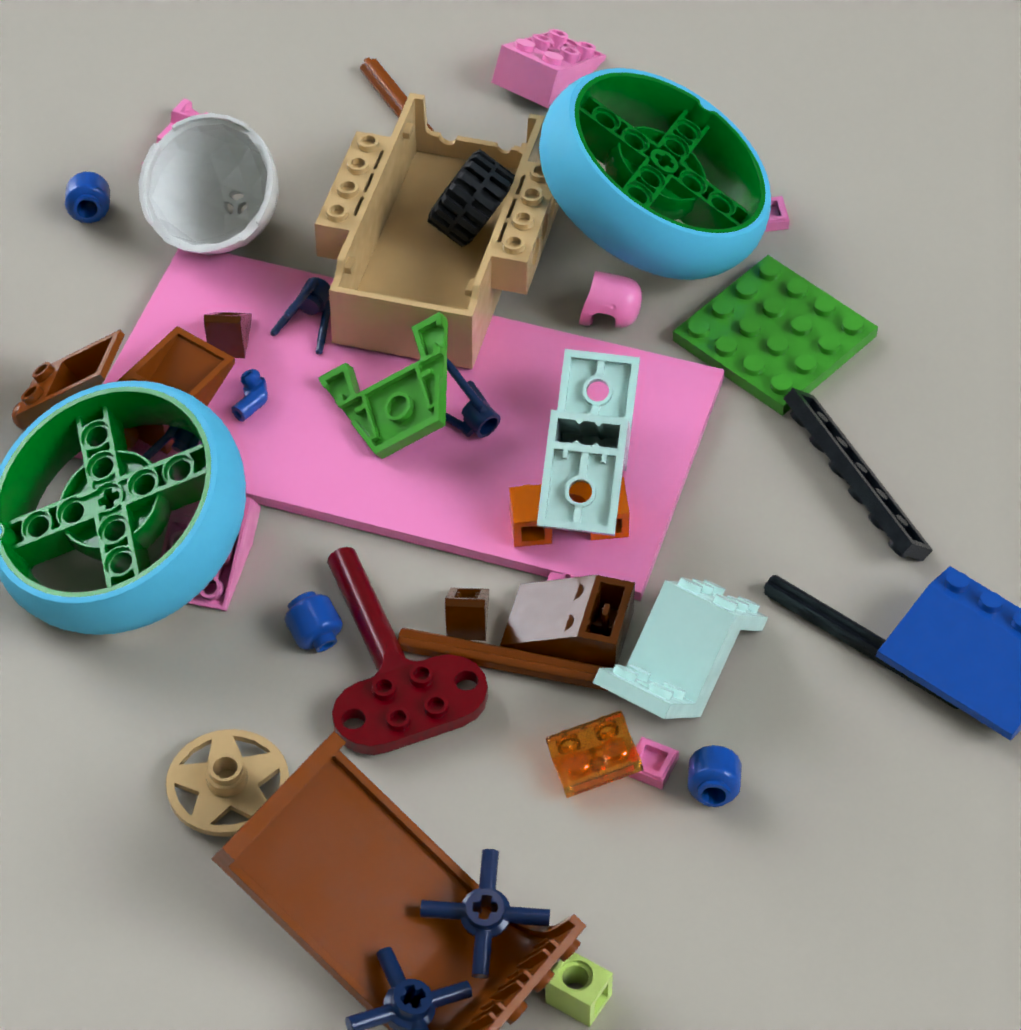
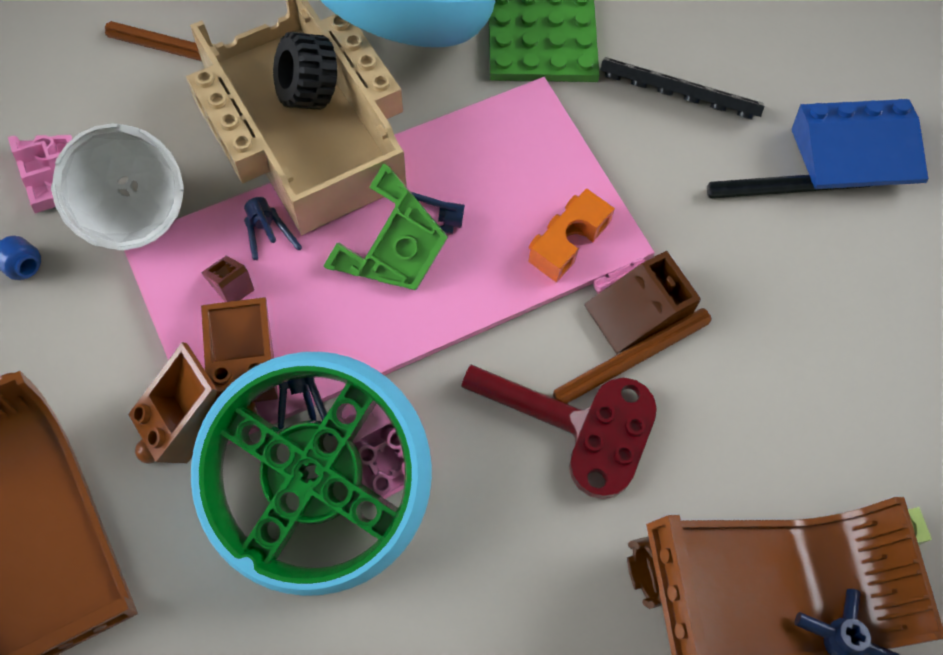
camera: 50 degrees left, 15 degrees up
(223, 781) = (568, 591): tan wheel -> none
(254, 395) = (294, 311): blue arm -> none
(313, 621) = (501, 434): blue head -> none
(467, 613) = (576, 345): reddish brown slope -> none
(500, 917) = (818, 537): dark blue bar -> none
(588, 442) = (564, 182): light aqua bracket -> none
(594, 754) = (748, 378): clear orange bracket -> none
(612, 296) = (444, 74): bright pink helmet -> none
(657, 762) = (771, 353): bright pink tile -> none
(682, 649) = (736, 272): light aqua bracket -> none
(714, 775) = (818, 332): blue head -> none

